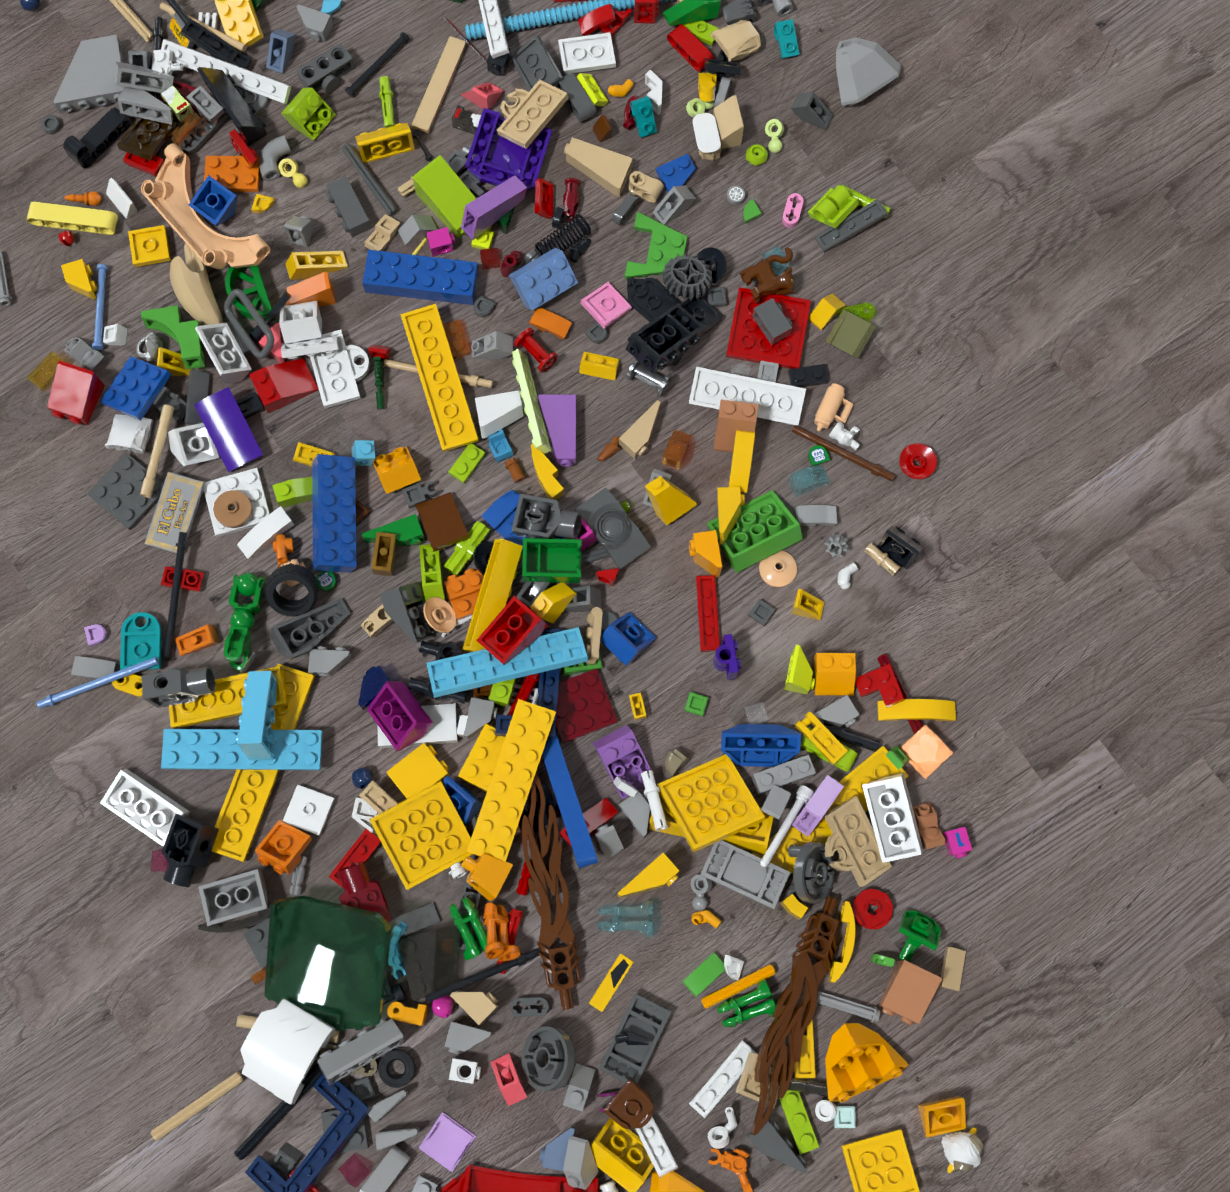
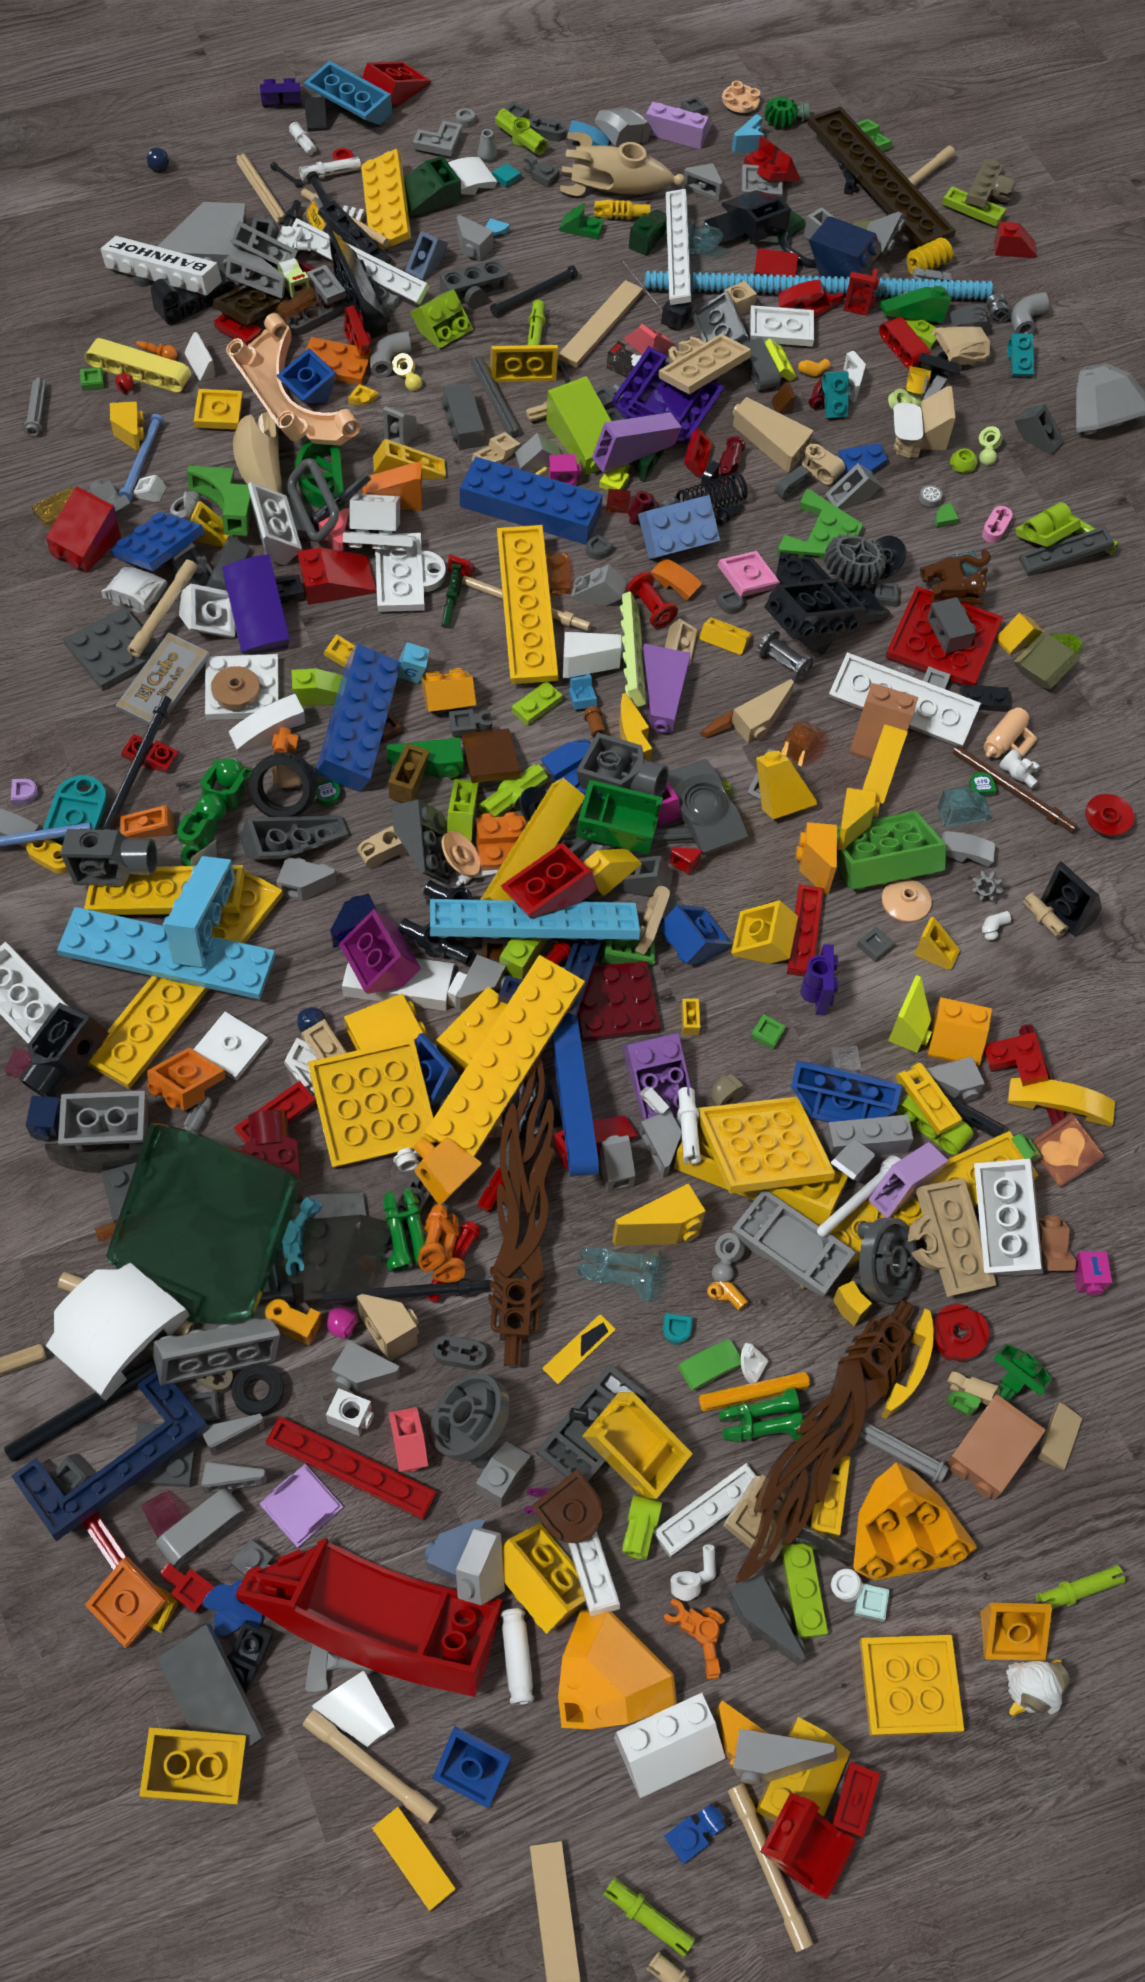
camera: 10 degrees right, 15 degrees down
(38, 238) = (91, 379): none -> bright green tile
(64, 116) = (160, 263): none -> white brick
(189, 902) = (43, 1117): none -> dark blue brick
(474, 1108) = (351, 1468): none -> red tile
(549, 29) = (743, 297): none -> tan brick
(565, 379) = (681, 637): none -> tan slope
(666, 1051) = (637, 1445): none -> yellow piece
(676, 952) = (677, 1328): none -> teal tile
(679, 625) = (765, 933): none -> yellow slope
(680, 1097) = (642, 1520): none -> lime piece
(889, 950) = (973, 1386): none -> tan bar
(981, 1075) = (1068, 1593): none -> lime pin

